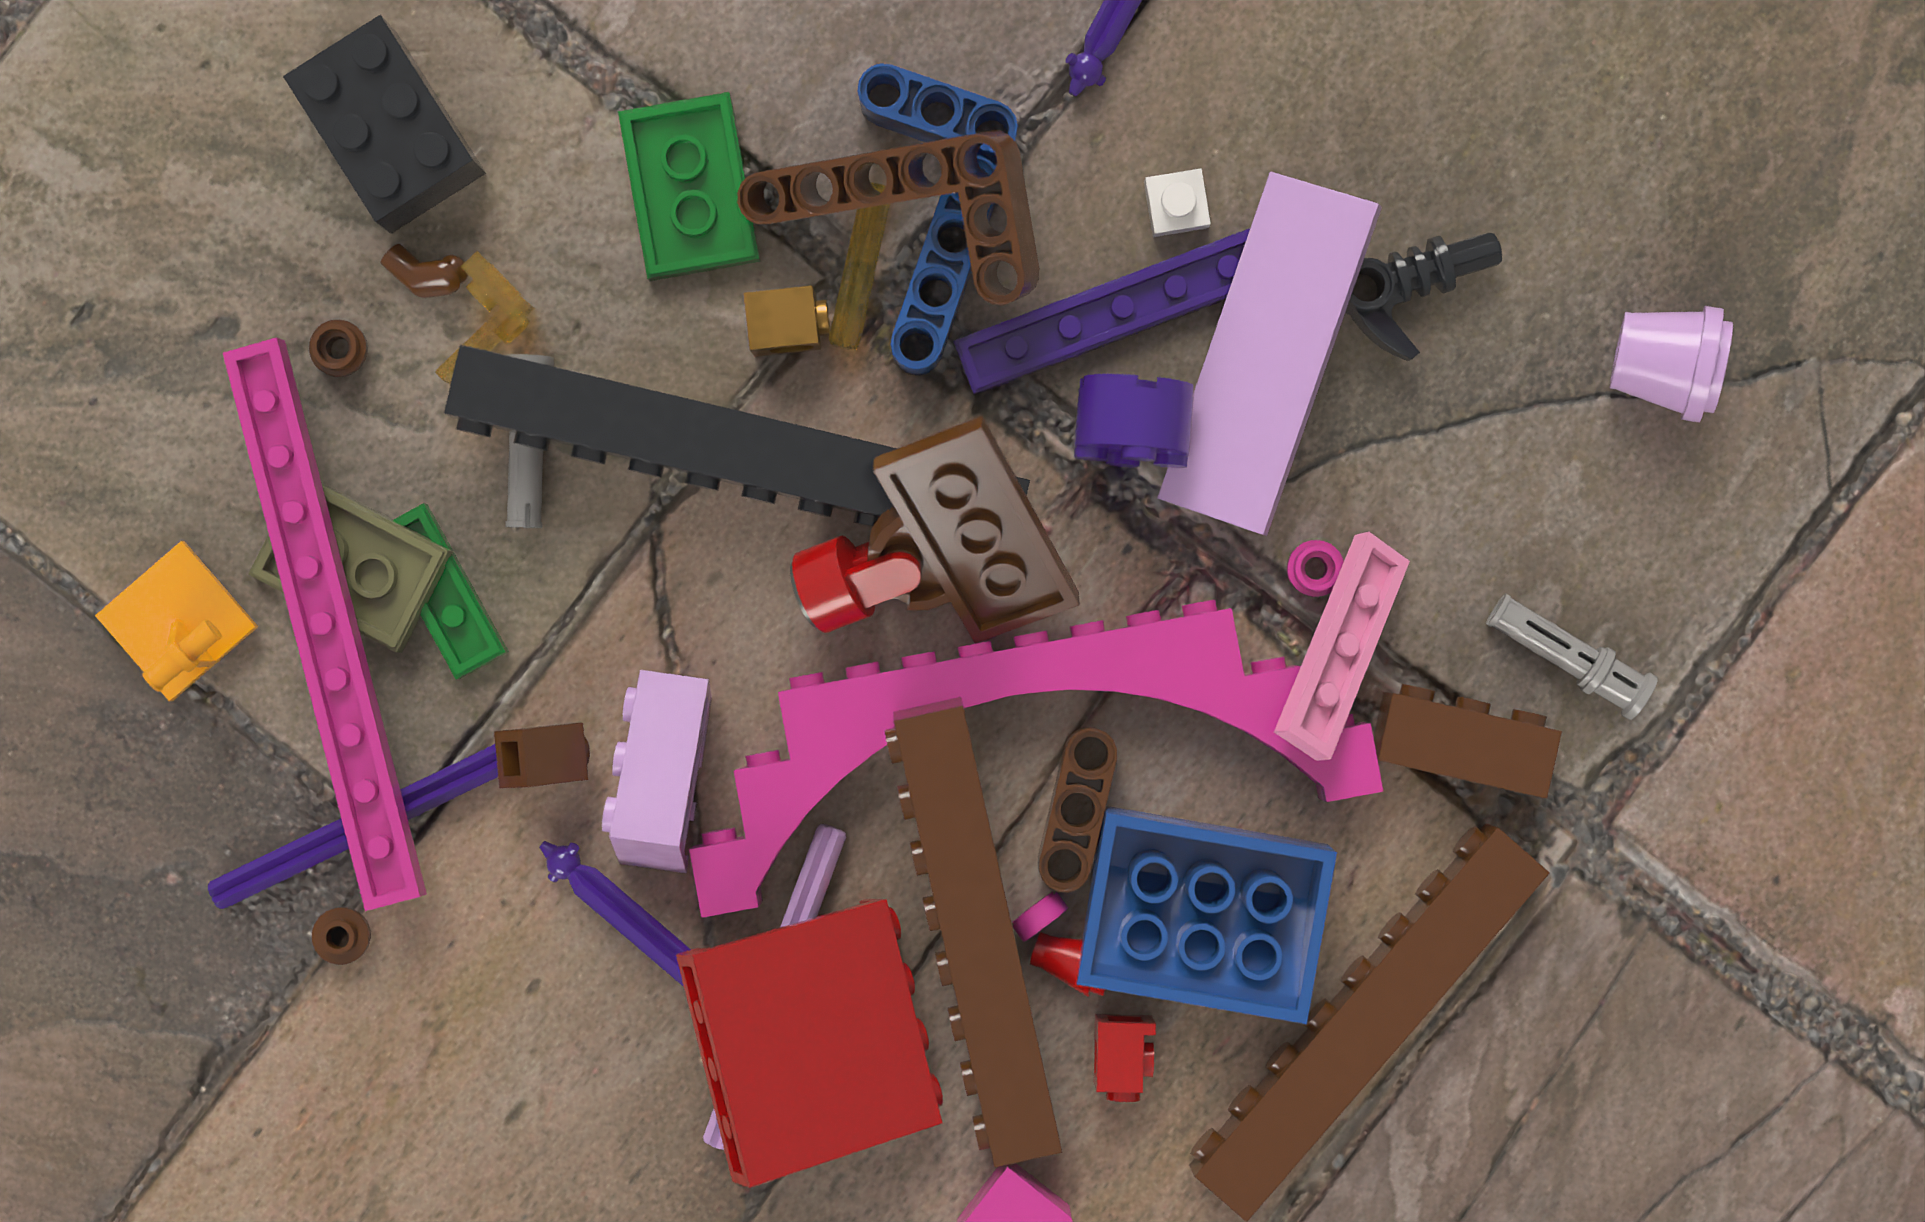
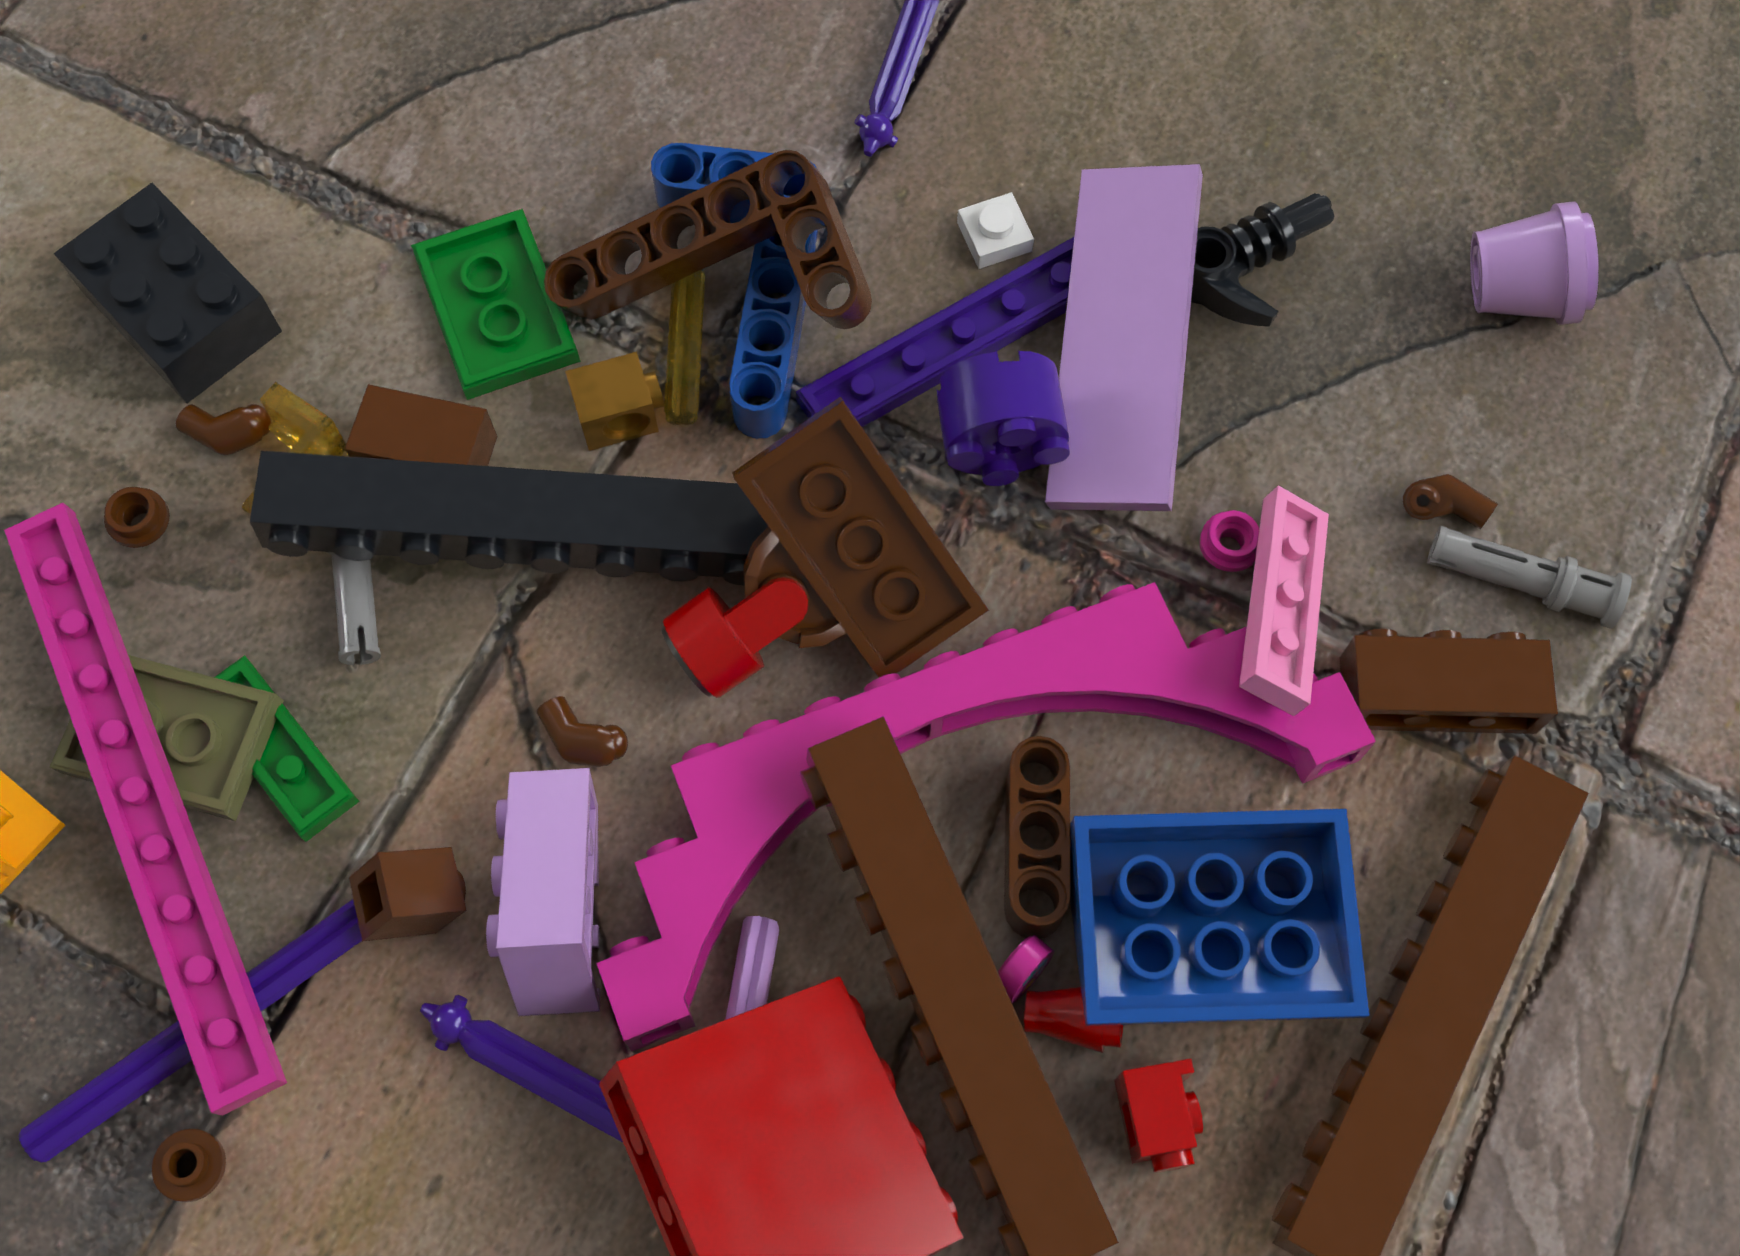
camera: 10 degrees left, 20 degrees down
(602, 330) = (420, 429): none -> reddish brown brick
(705, 642) = (579, 741): none -> reddish brown arm
(1521, 562) = (1447, 496): none -> reddish brown arm

